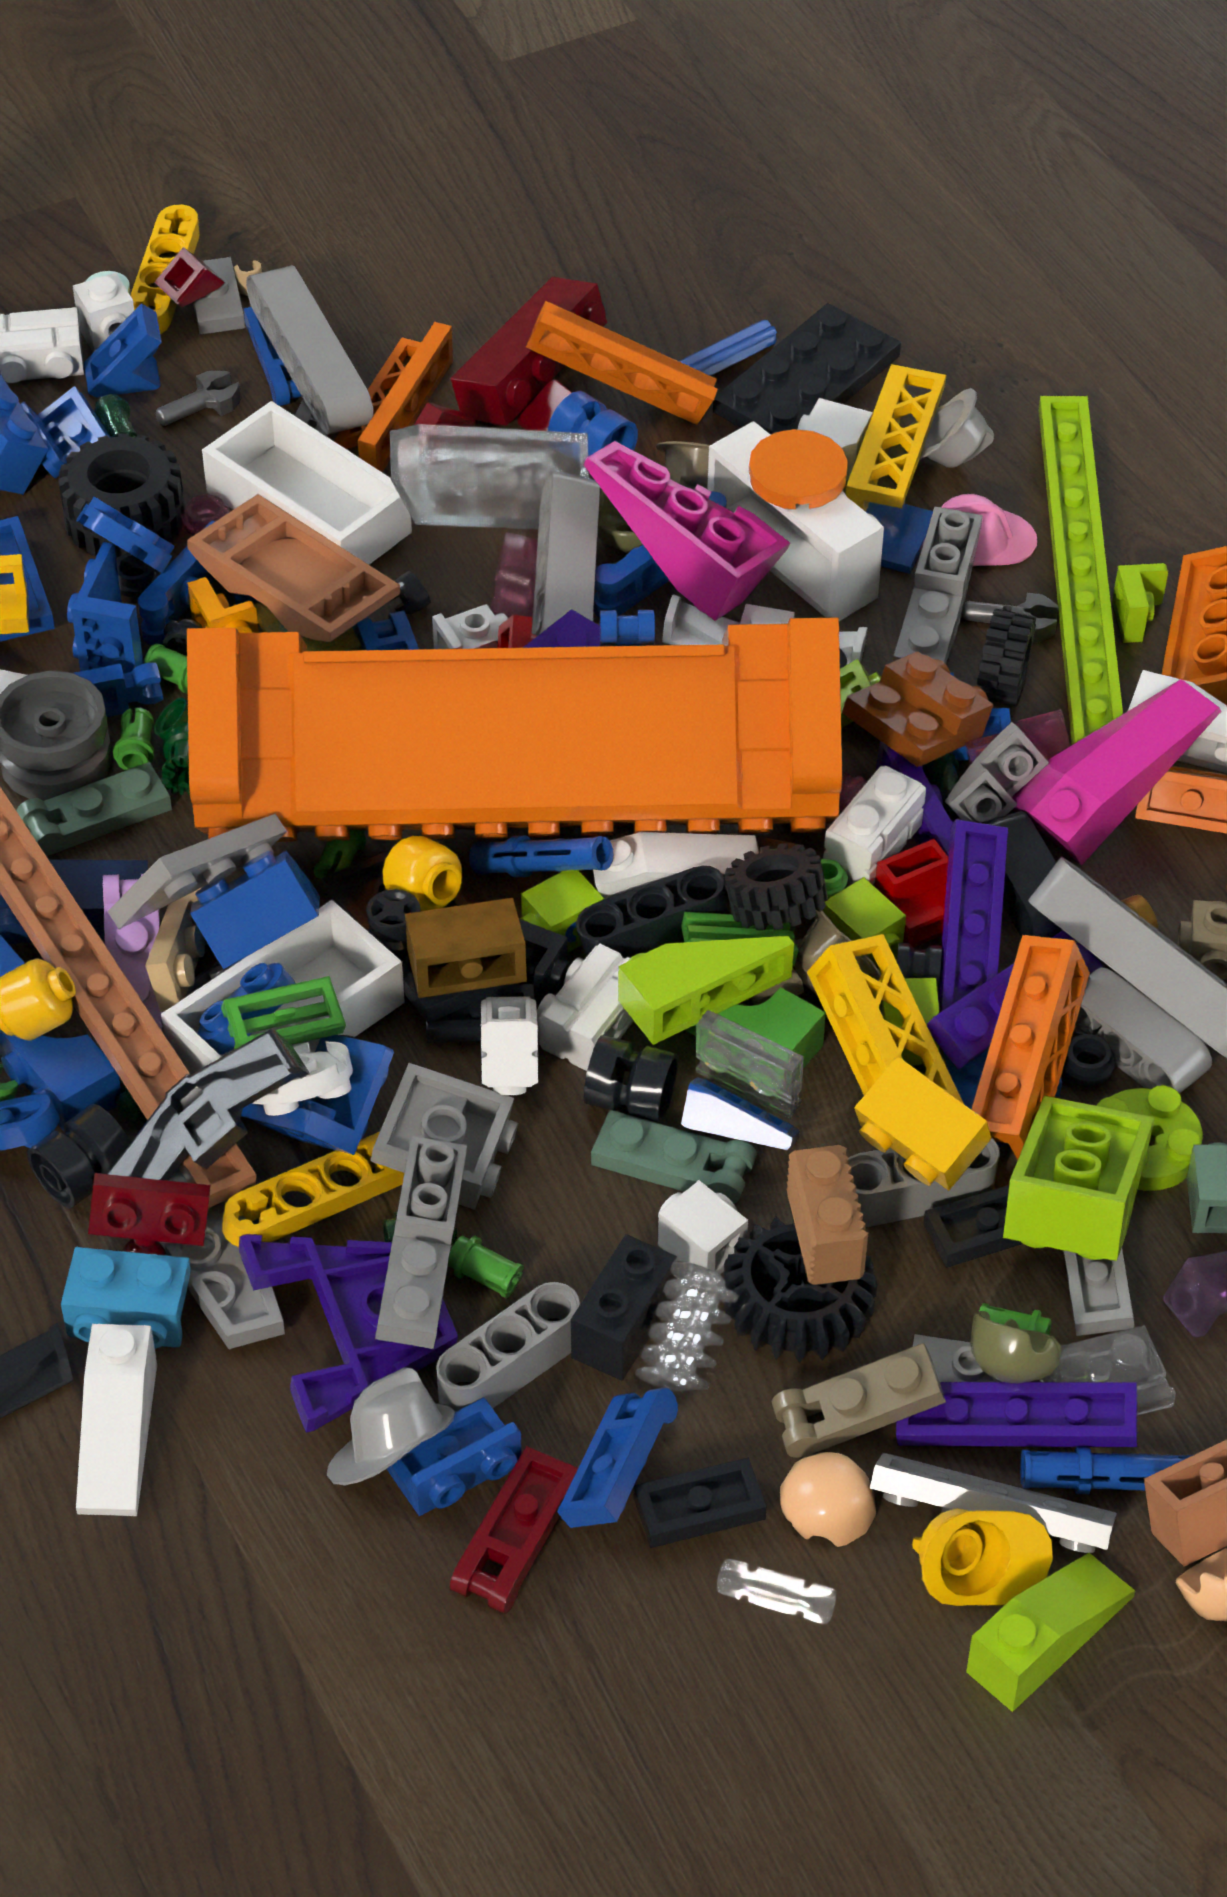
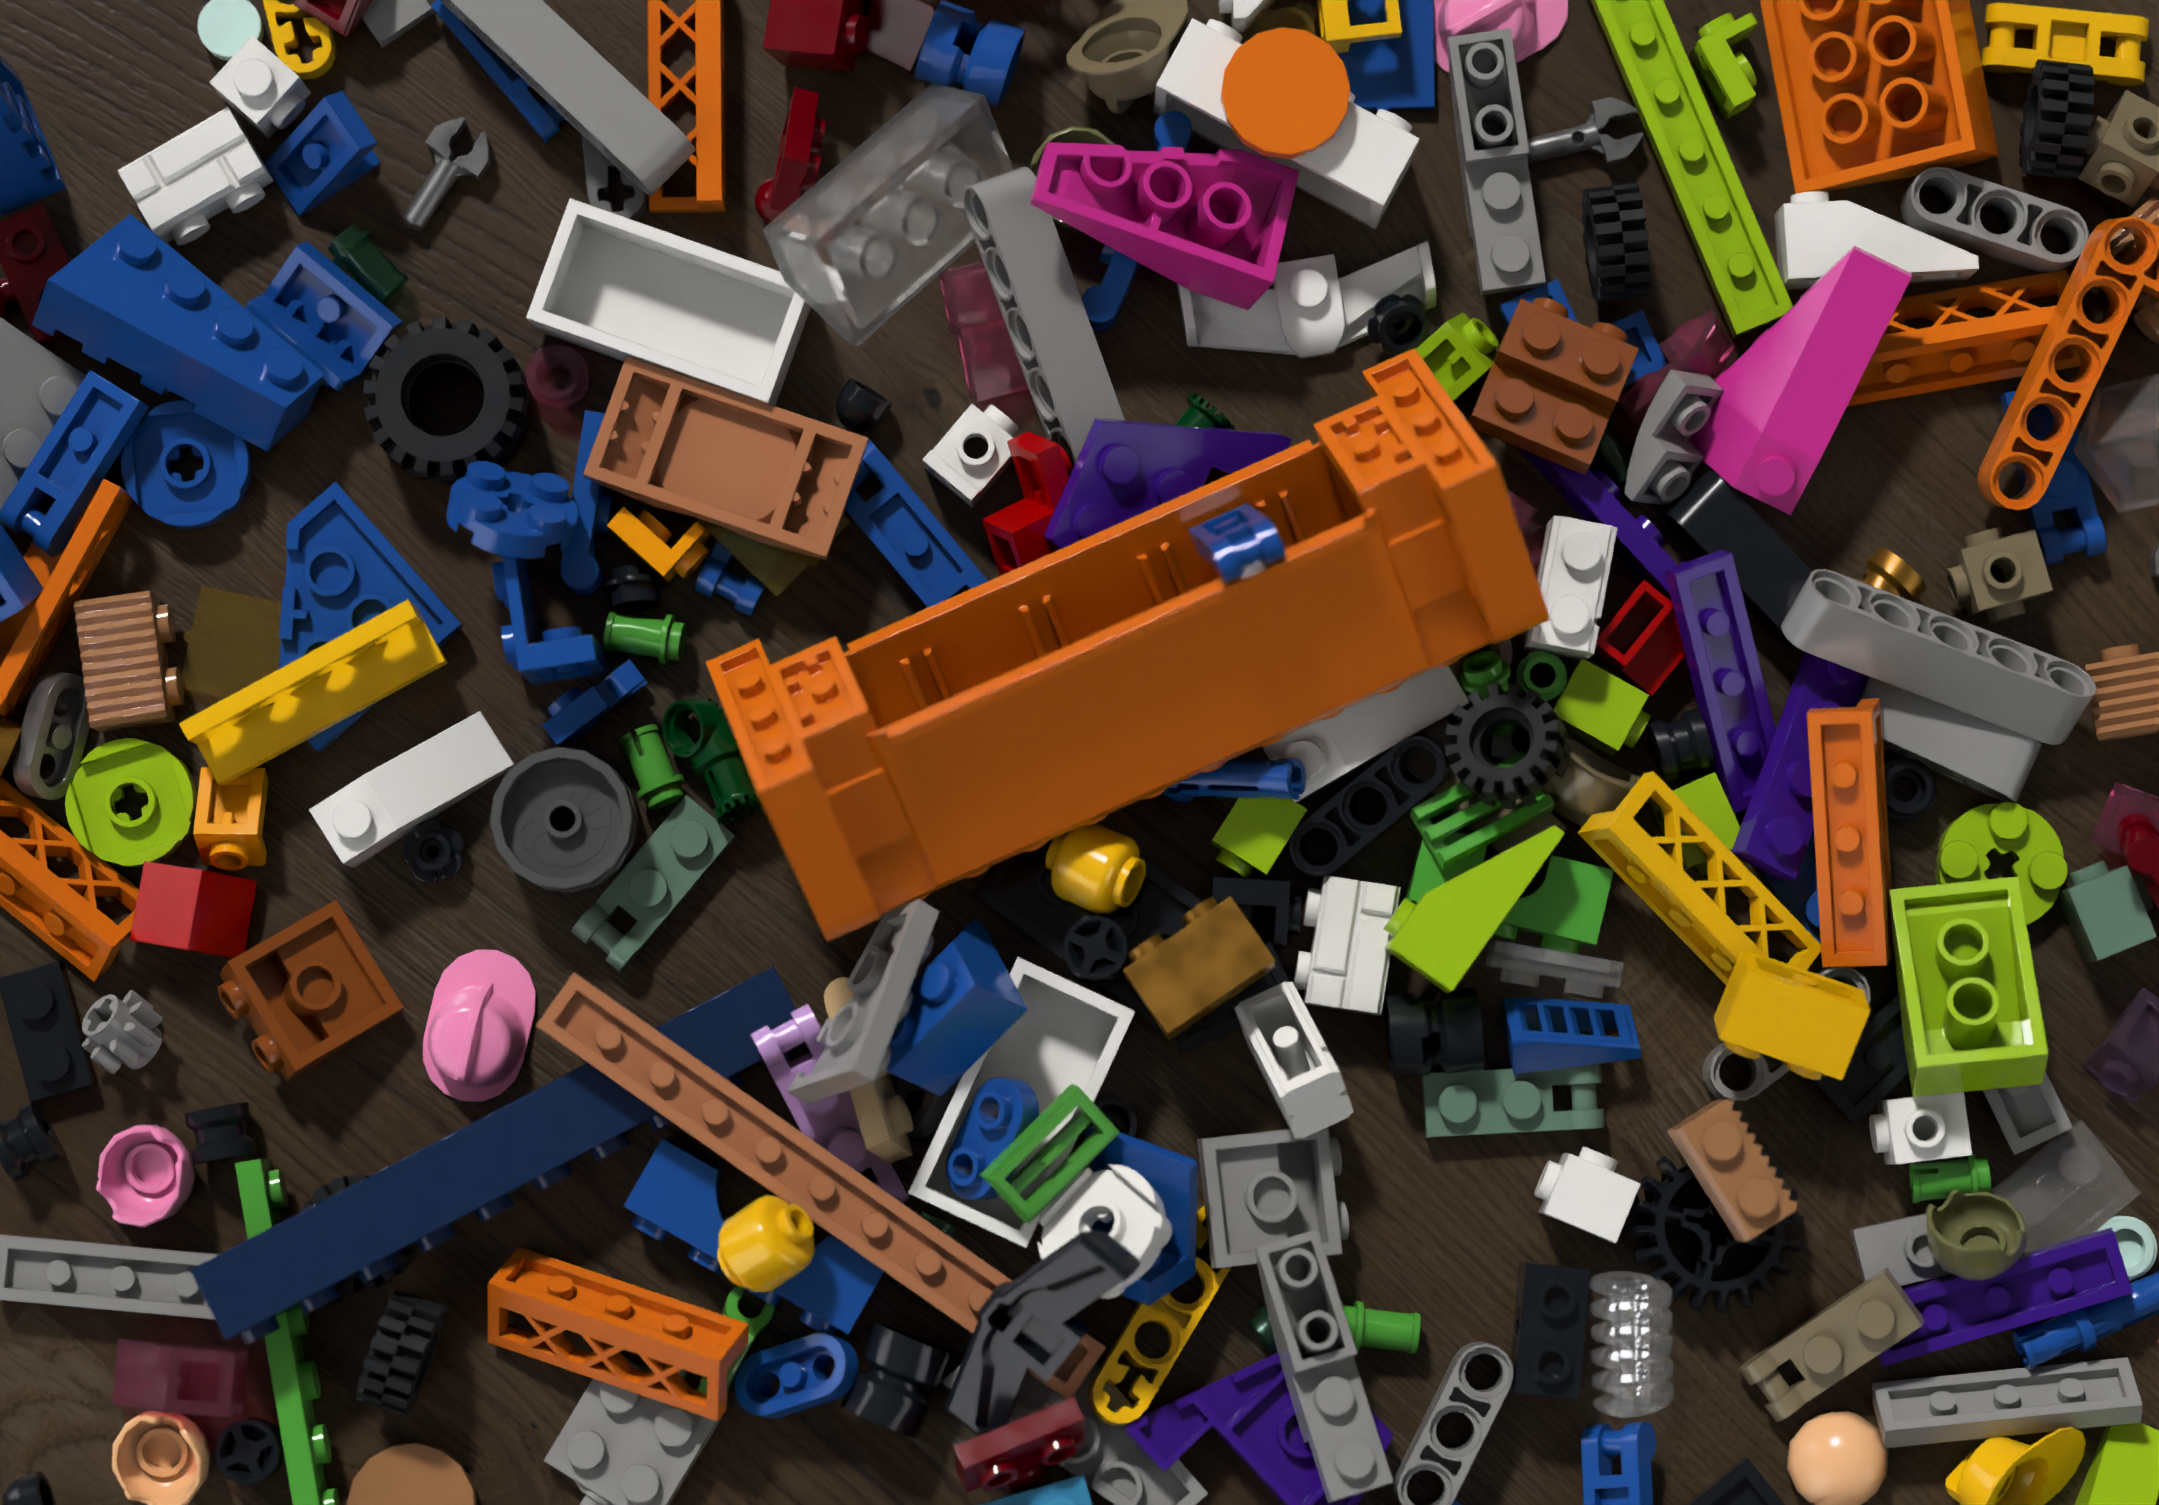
camera: 25 degrees left, 35 degrees up
(1003, 1275) = (1921, 1128): none -> white brick
(1154, 1432) = (2135, 1243): none -> light aqua tile

